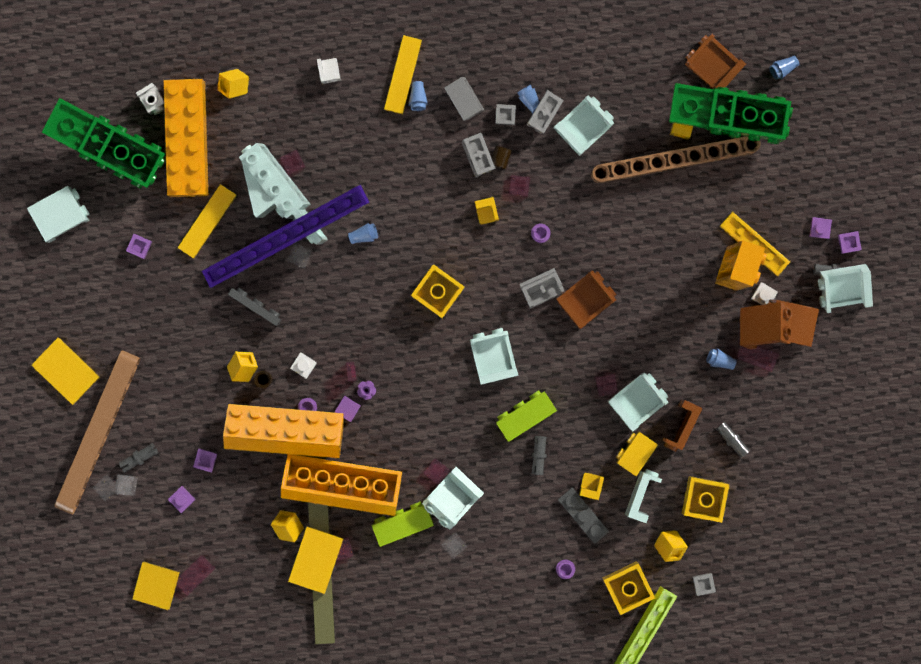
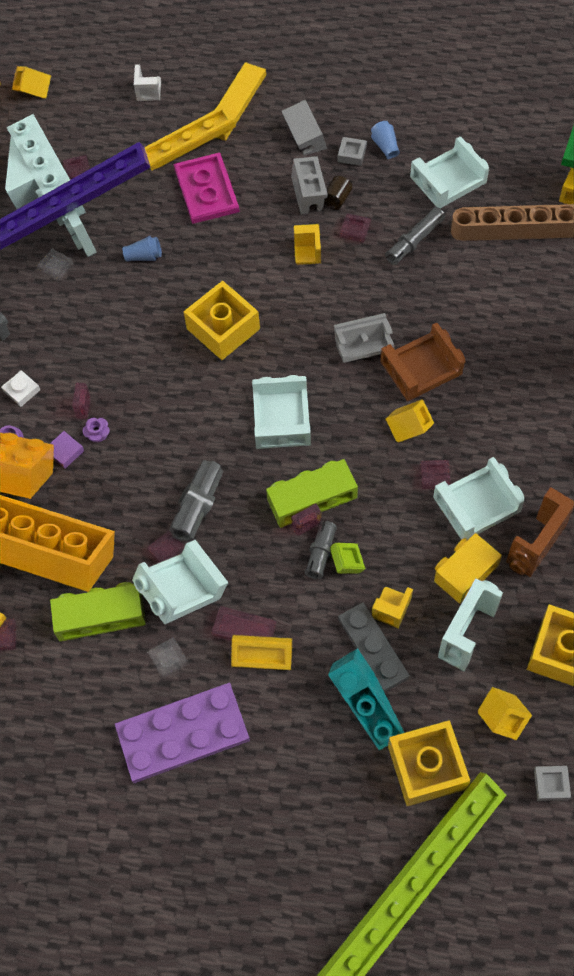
camera: 15 degrees right, 25 degrees down
(374, 122) = (189, 137): none -> yellow tile
(398, 165) = (206, 188): none -> dark pink tile
(418, 97) = (247, 122): medium blue cone -> none
(449, 435) = (196, 501): none -> dark grey piece
(473, 591) = (181, 732): none -> medium lavender plate
(498, 517) = (235, 622): none -> clear pink tile
(513, 533) = (261, 652): none -> yellow tile
(526, 436) = (306, 519): none -> clear pink tile
(540, 233) = (373, 280): medium lavender plate -> none
(545, 112) = (401, 149): light grey hinge -> none
(557, 458) = (347, 558): none -> lime tile
(565, 569) = (332, 722): medium lavender plate -> none
(569, 182) = (409, 241): none -> dark grey pin
(583, 551) = (365, 697): none -> teal slope
(584, 348) = (410, 421): none -> yellow panel

